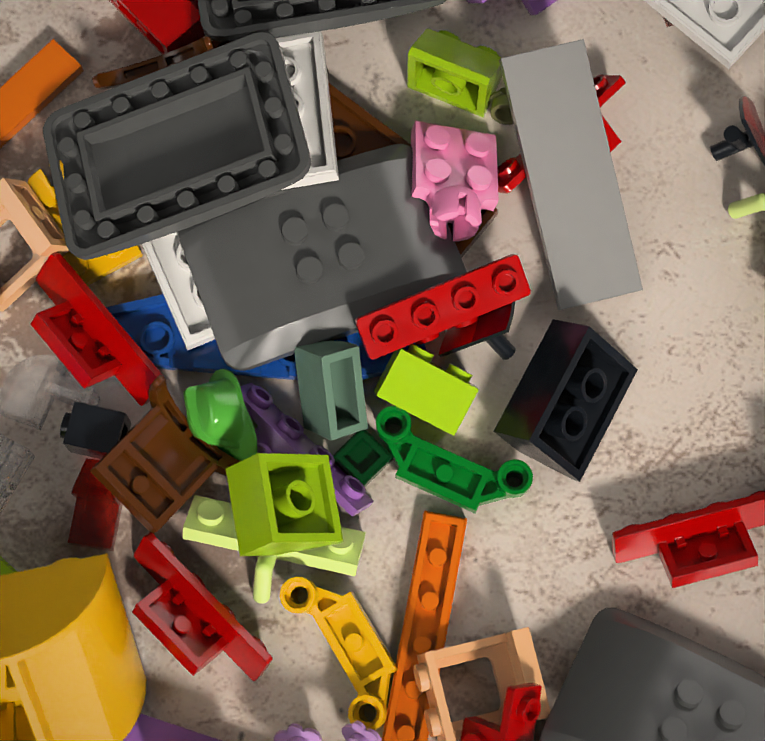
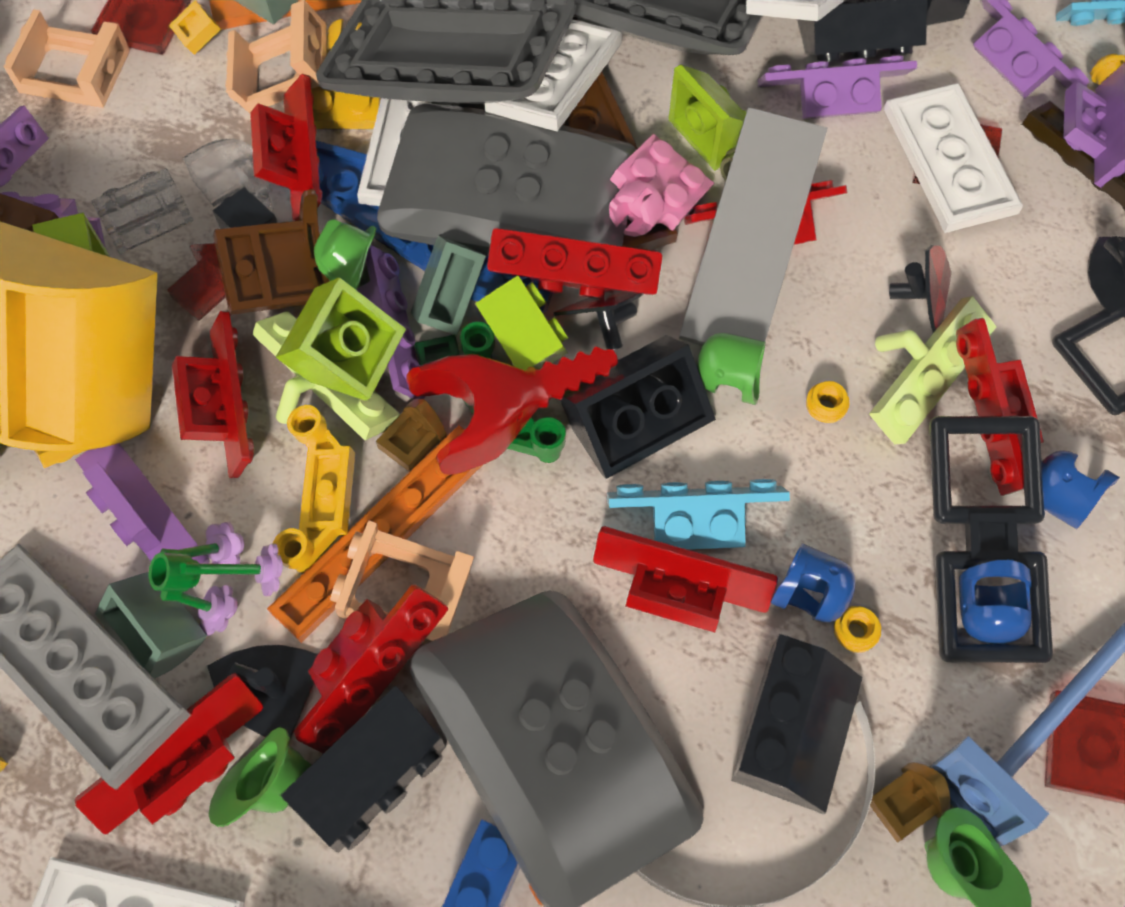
camera: 30 degrees right, 10 degrees down
(388, 544) = (412, 434): none -> pearl gold tile
(461, 463) = (500, 397): none -> red animal
(626, 314) = (732, 362): none -> bright green helmet
(679, 467) = (699, 516): none -> medium azure bracket
(725, 285) = (831, 392): none -> yellow plate

